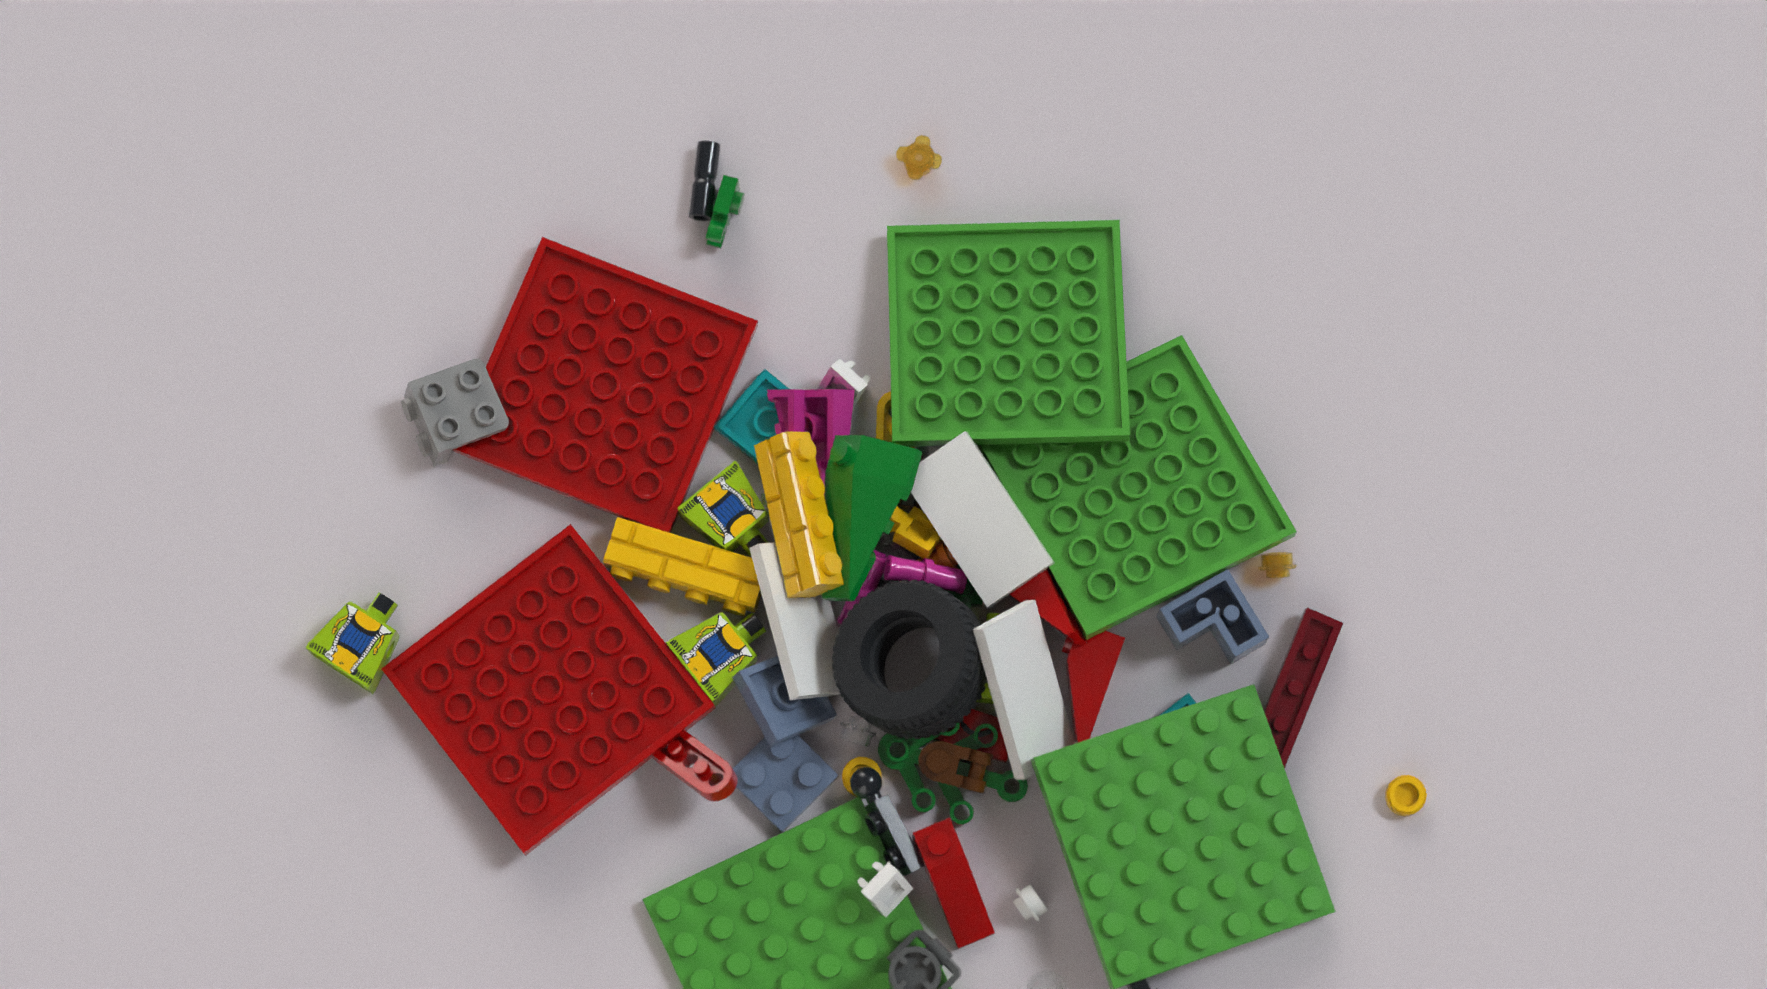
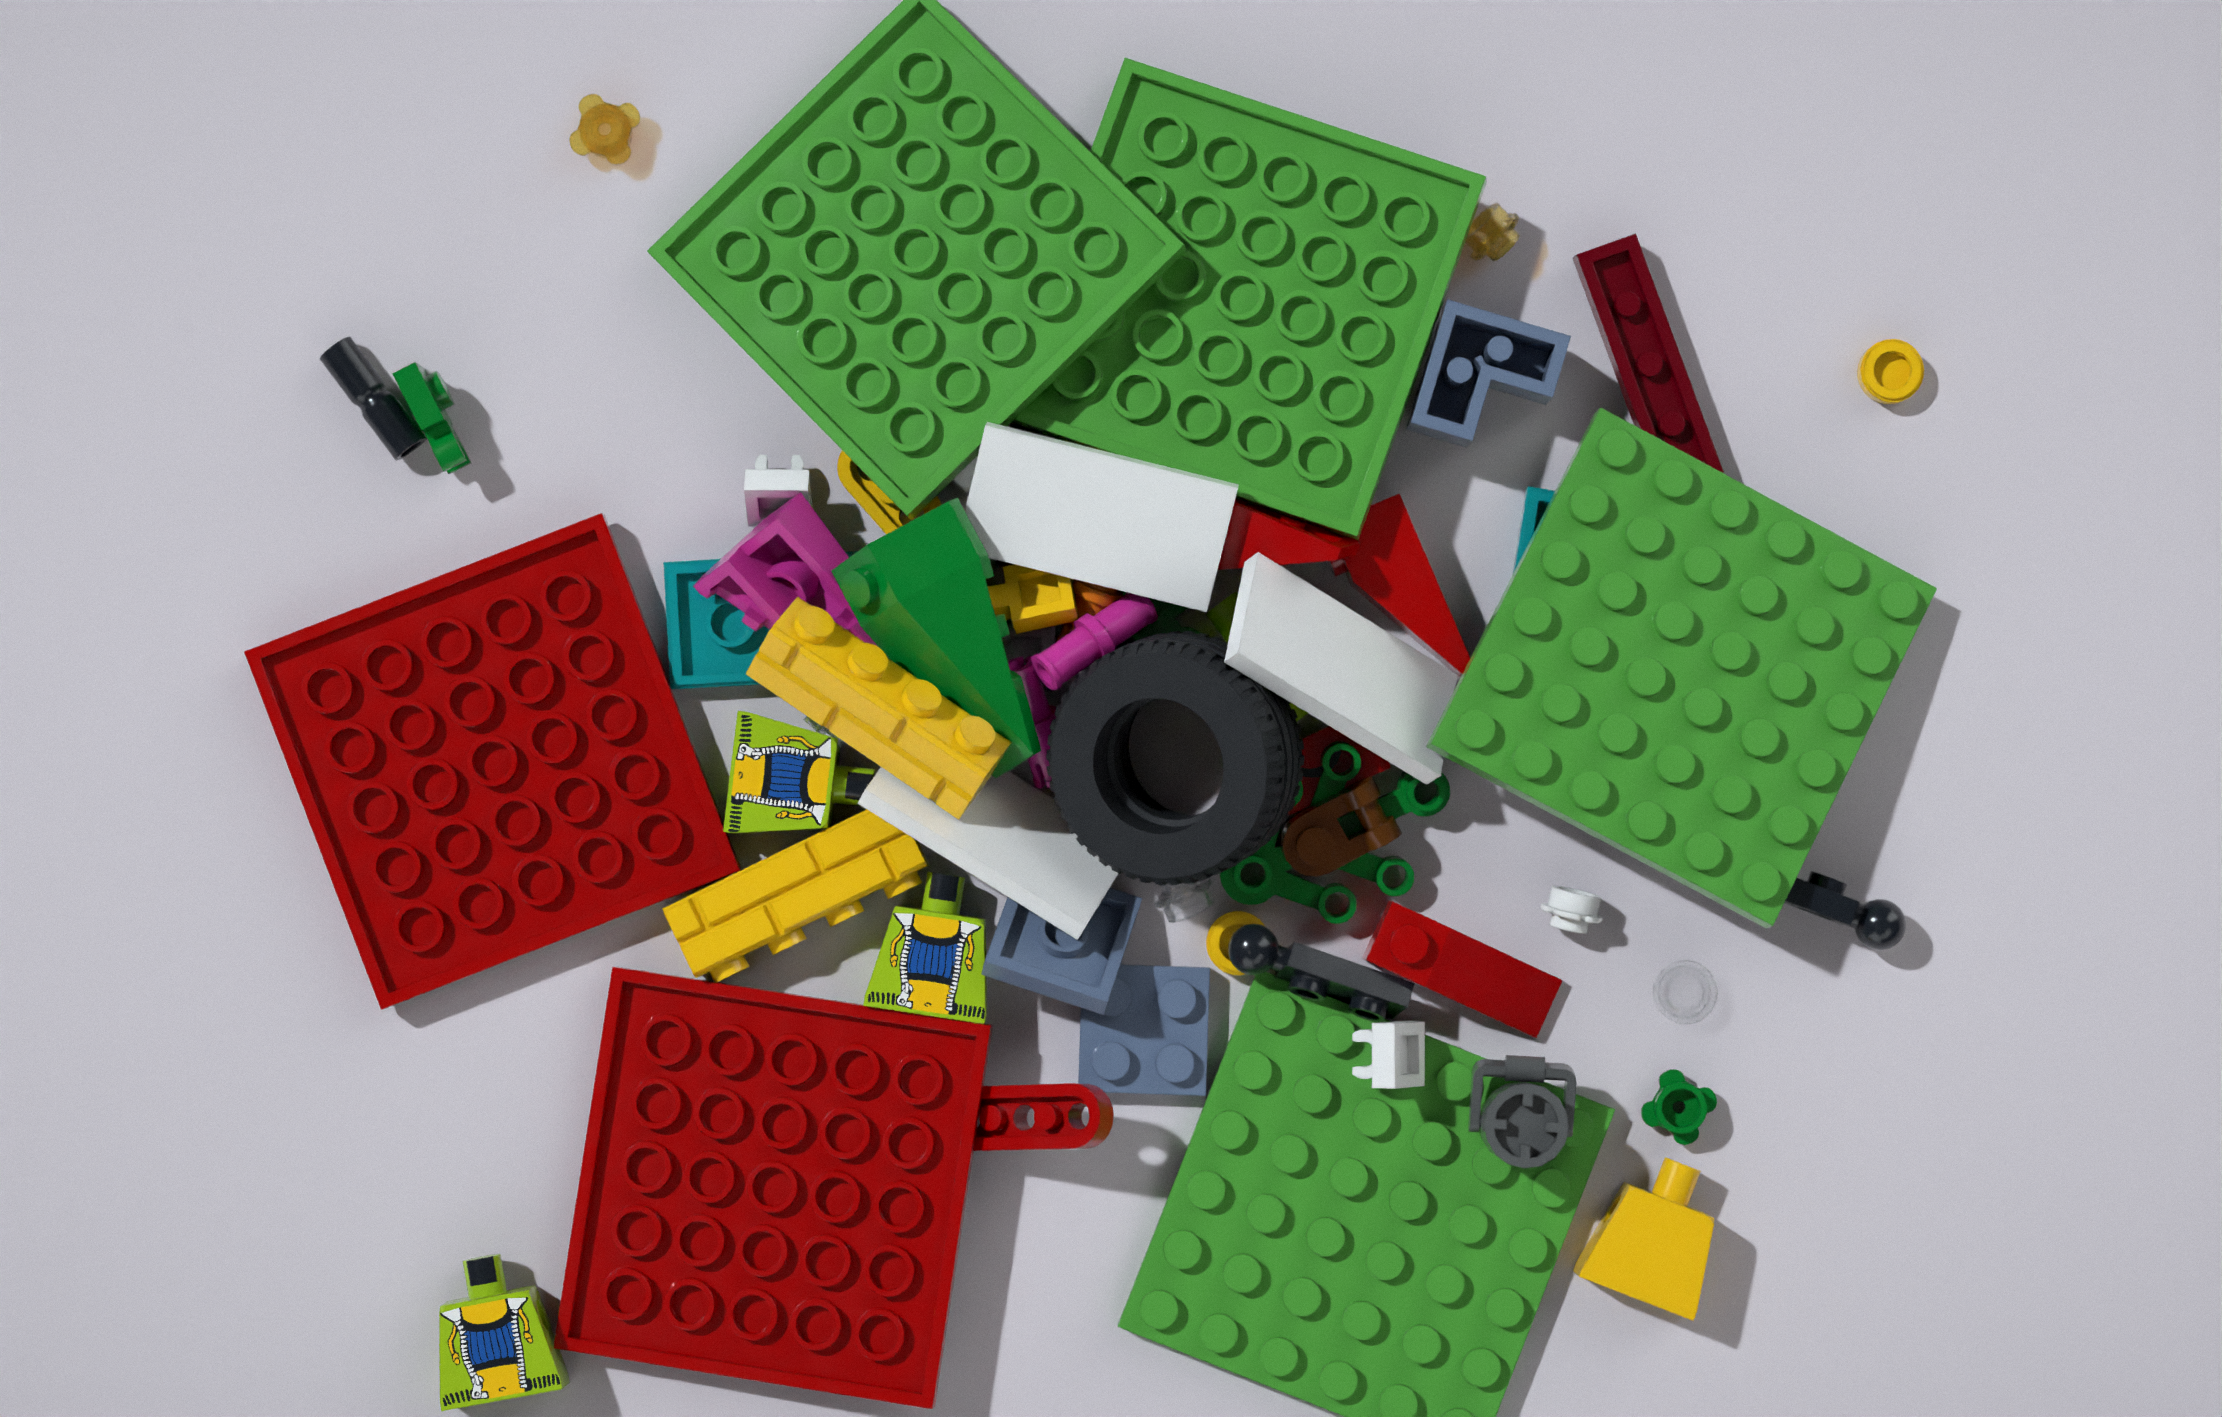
camera: 40 degrees left, 10 degrees up
(453, 409) = (341, 959): light grey bracket -> none

